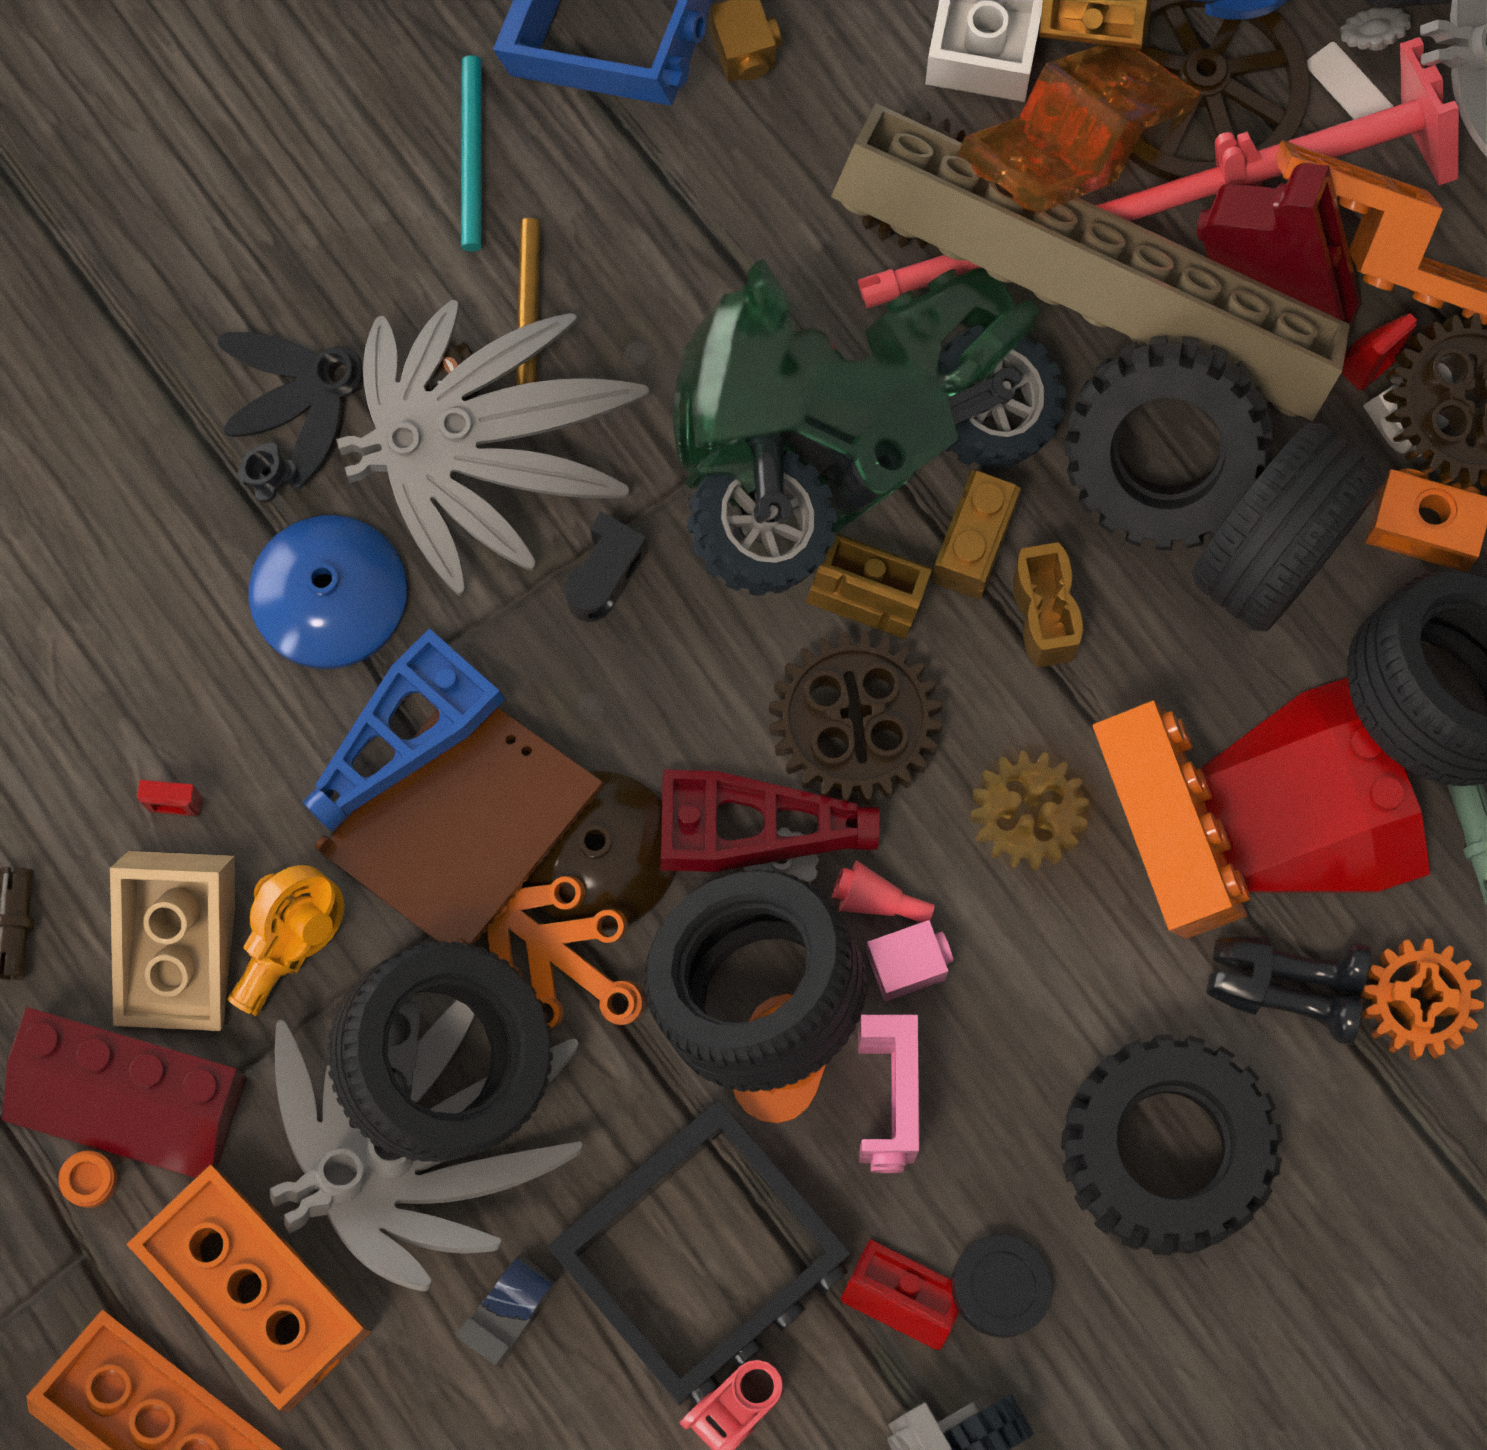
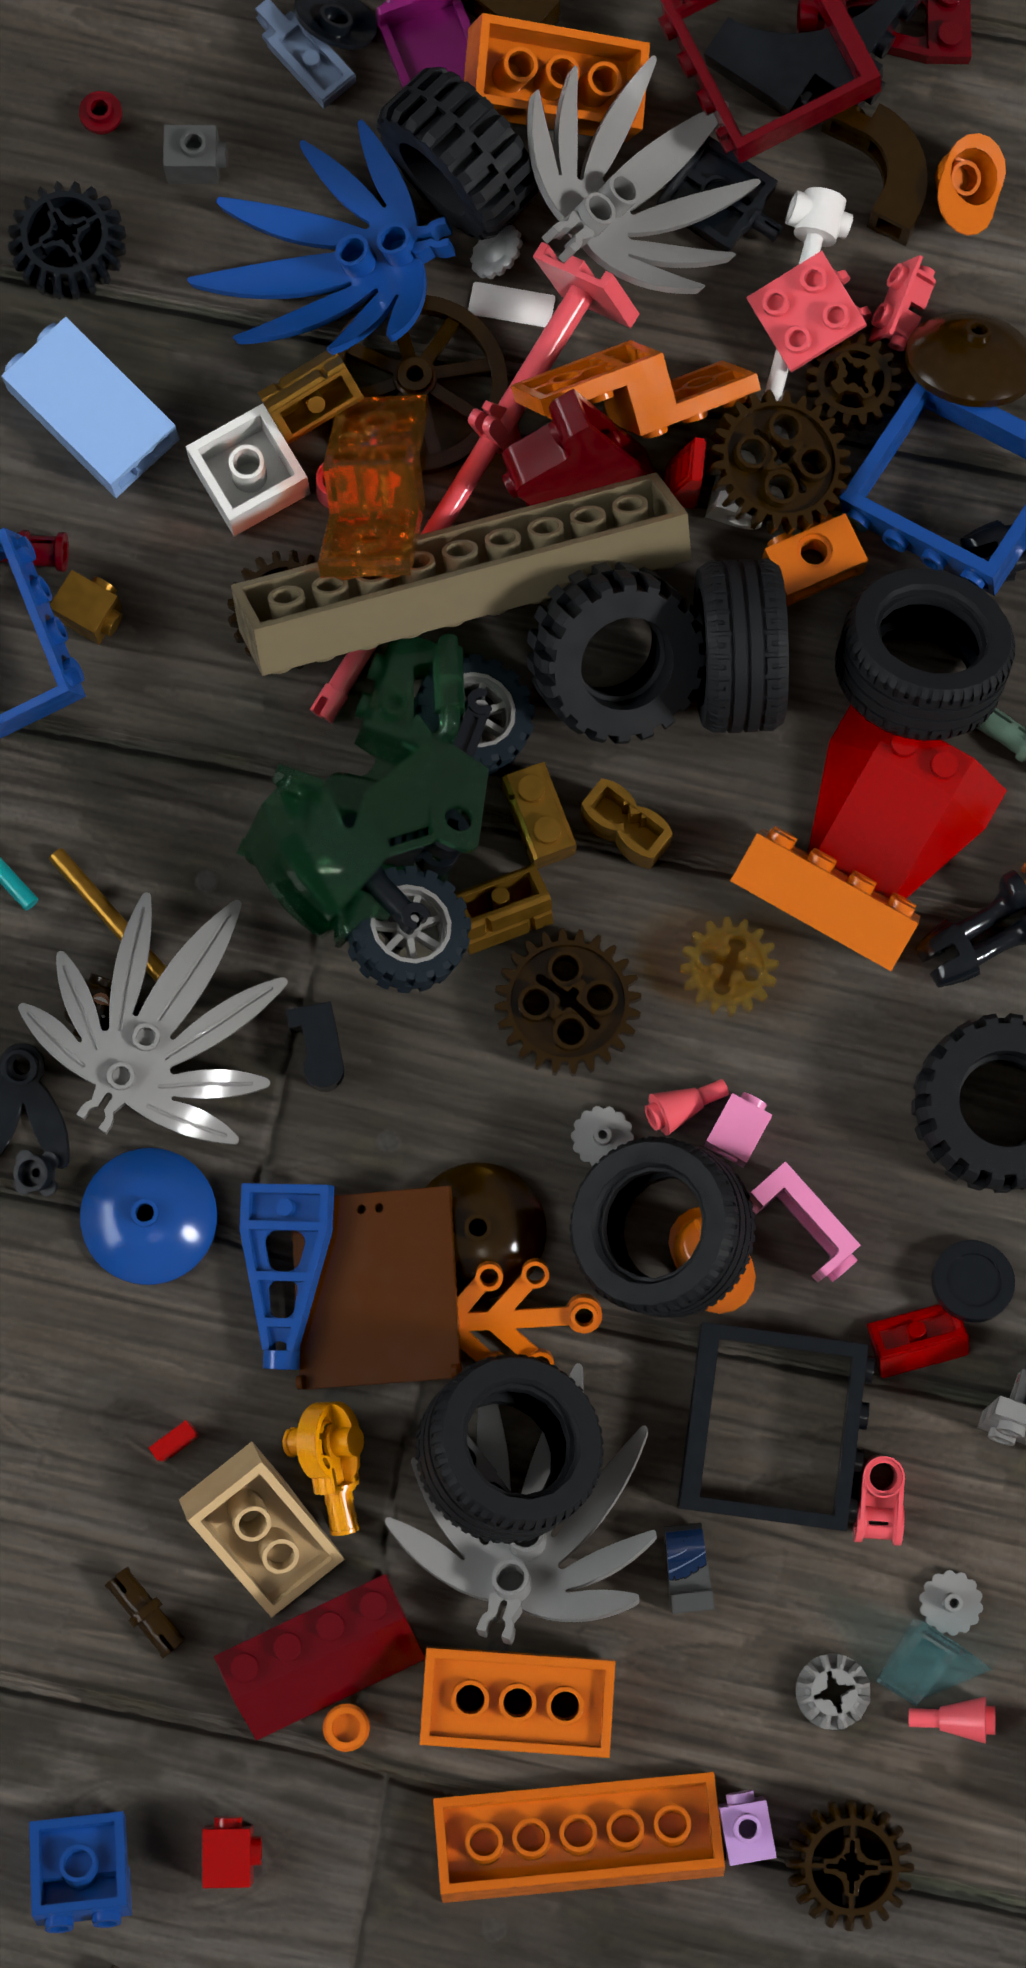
camera: 45 degrees left, 5 degrees up
(690, 832) = (527, 1163): dark red plate -> none

